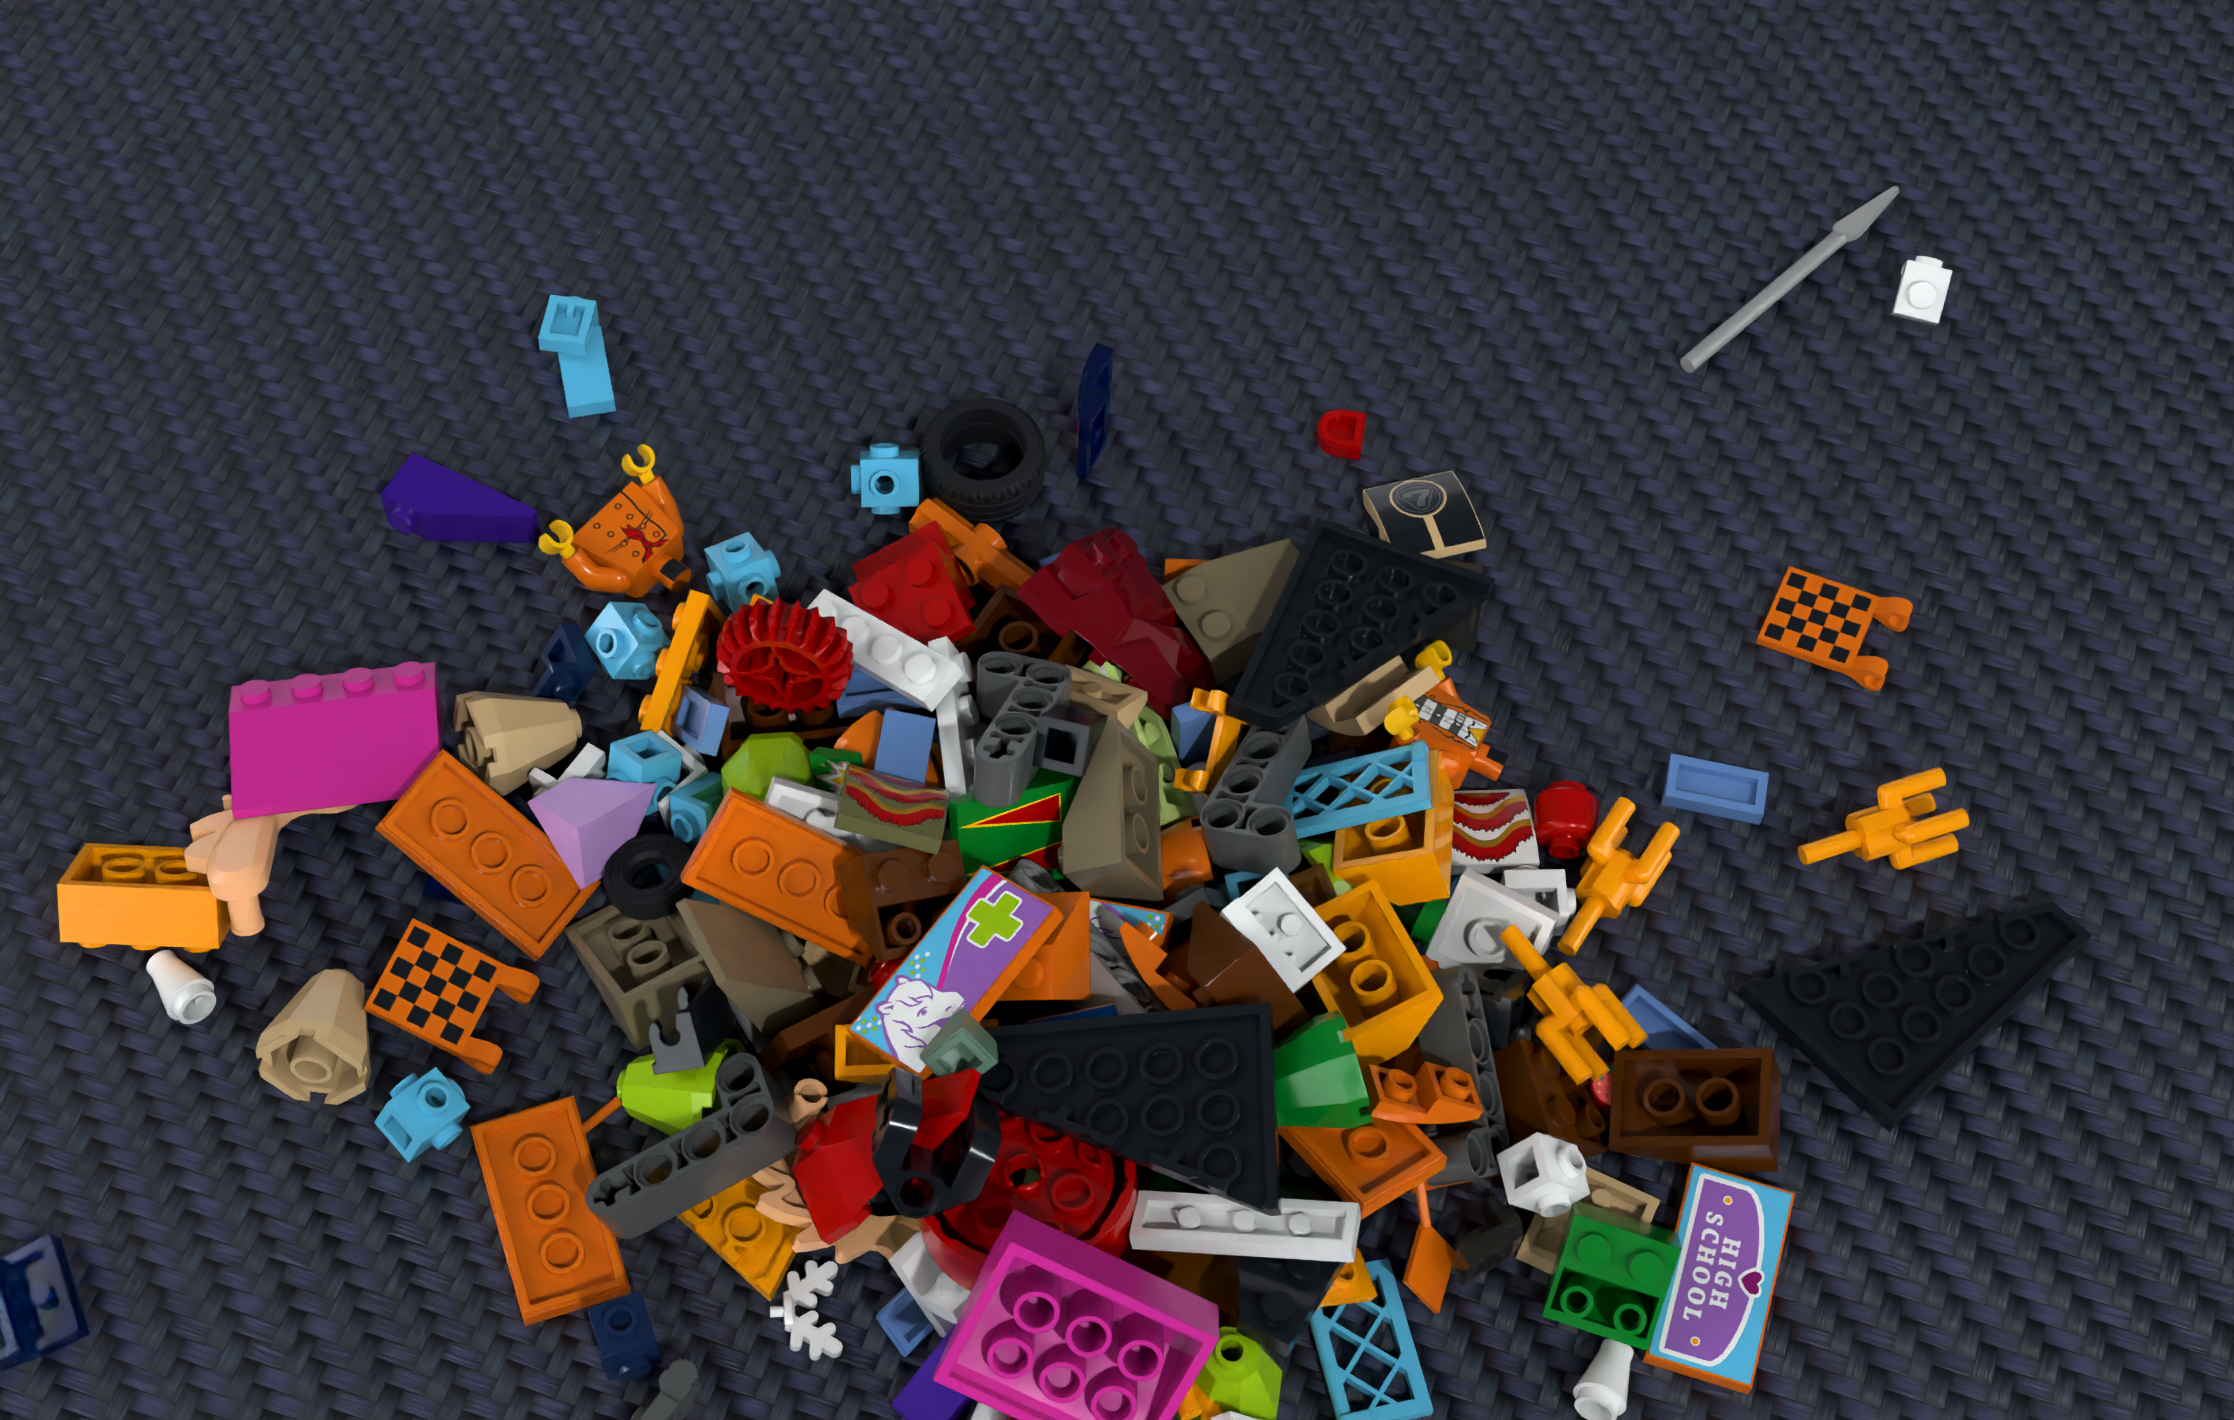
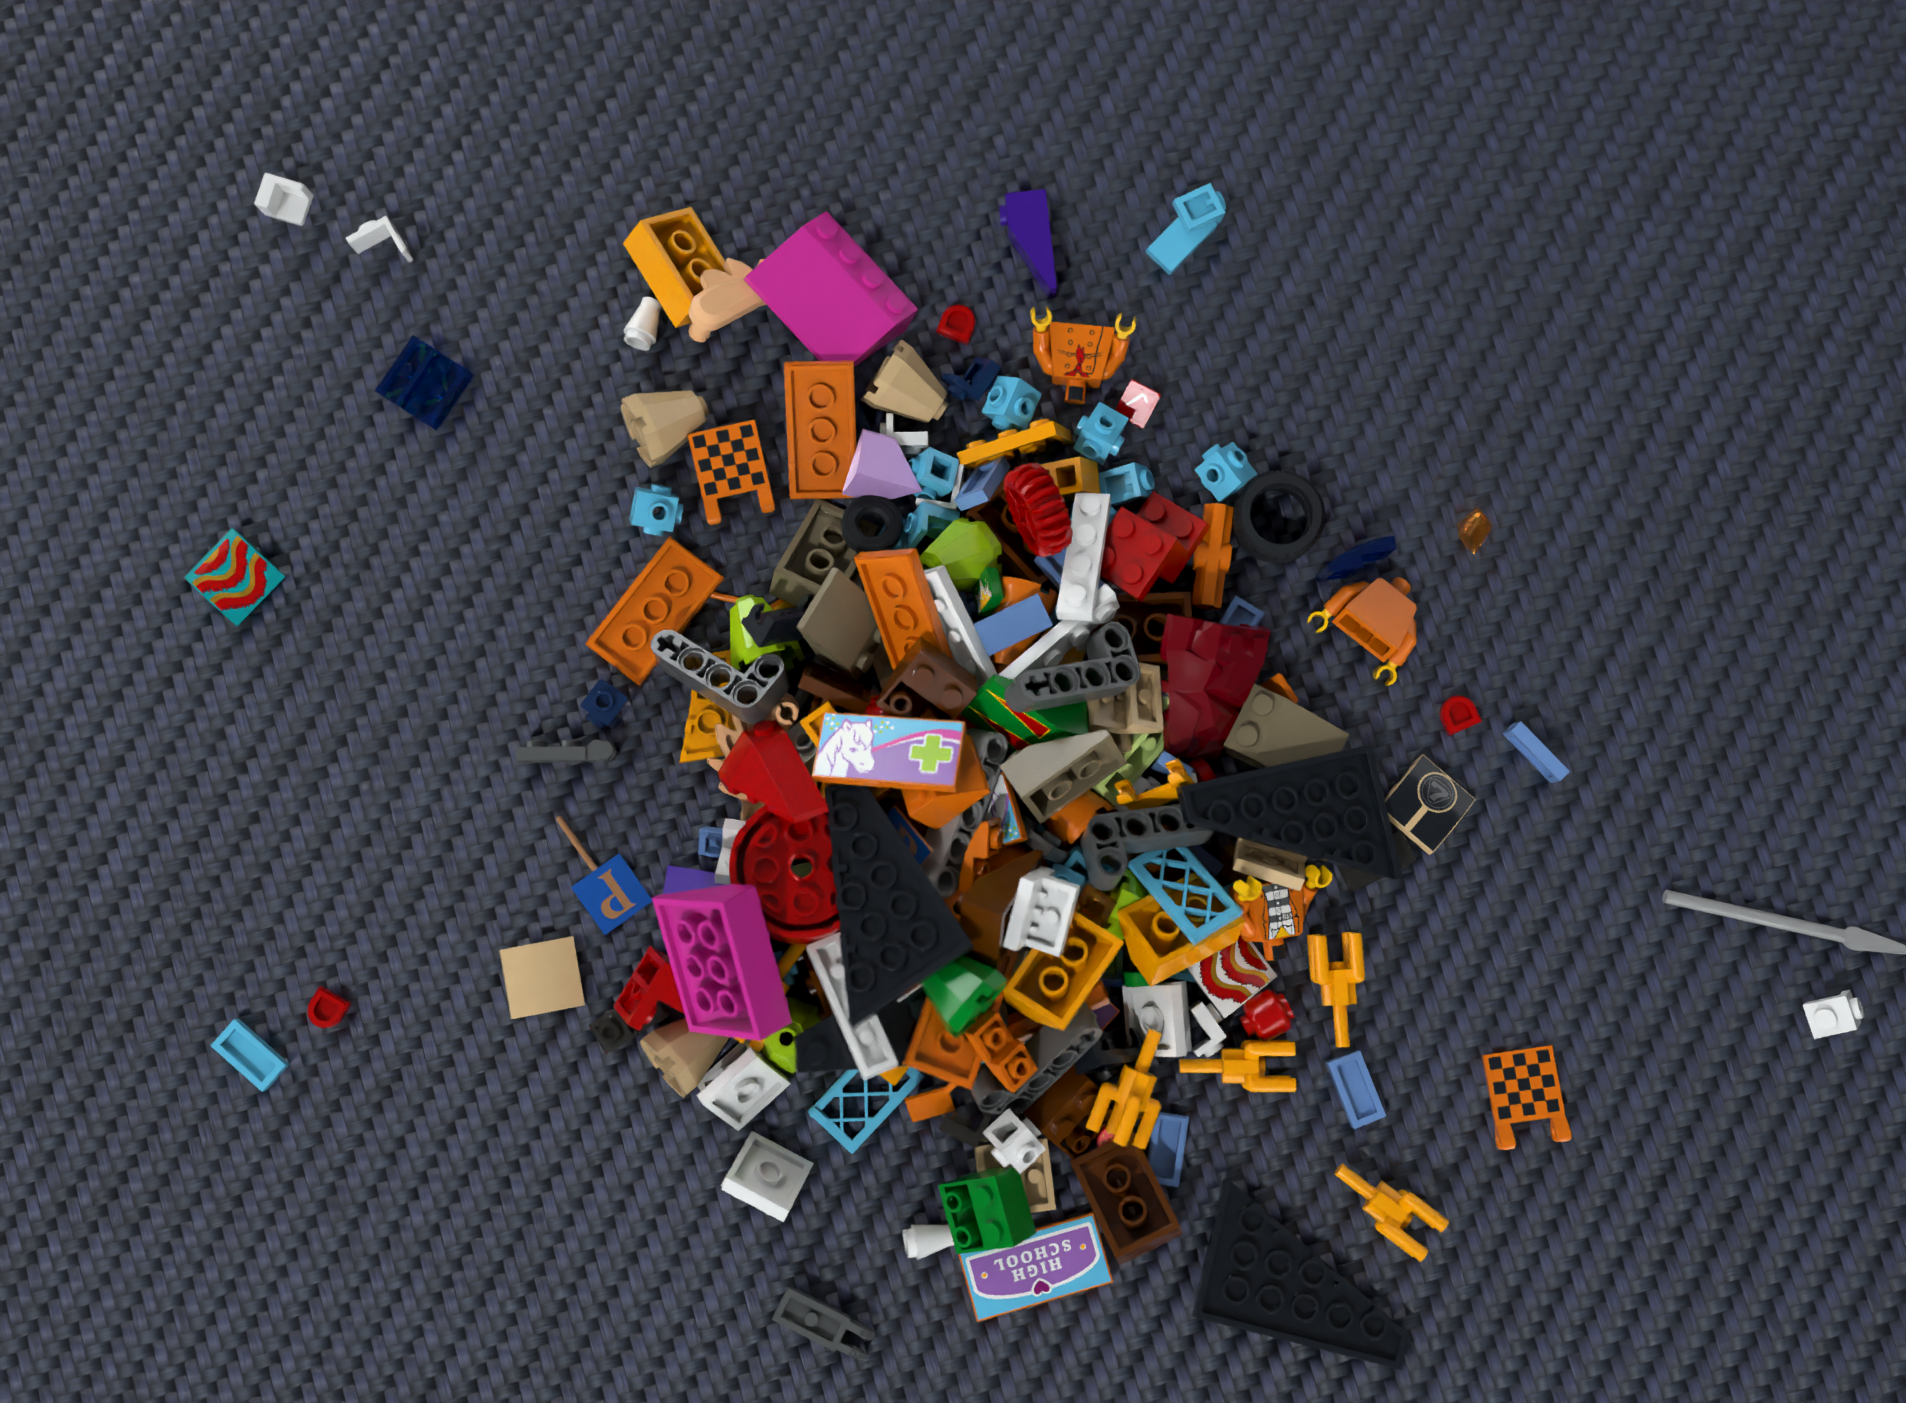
camera: 60 degrees right, 25 degrees up
(485, 649) = (957, 324): none -> red tile
(734, 516) = (1138, 403): none -> slope
(803, 1327) = (677, 789): white animal -> none
(816, 575) = (1126, 483): none -> medium azure bracket
(892, 809) = (969, 645): slope -> none
(898, 1160) = (752, 819): black piece -> none
(960, 1046) = (841, 789): sand green slope -> none
(1067, 739) = (1082, 714): black brick -> none
(1143, 297) = (1474, 530): none -> clear orange slope
(1175, 435) = (1377, 619): none -> orange torso
(1439, 382) = (1535, 752): none -> medium blue tile
(1568, 719) = (1337, 978): none -> light orange plant

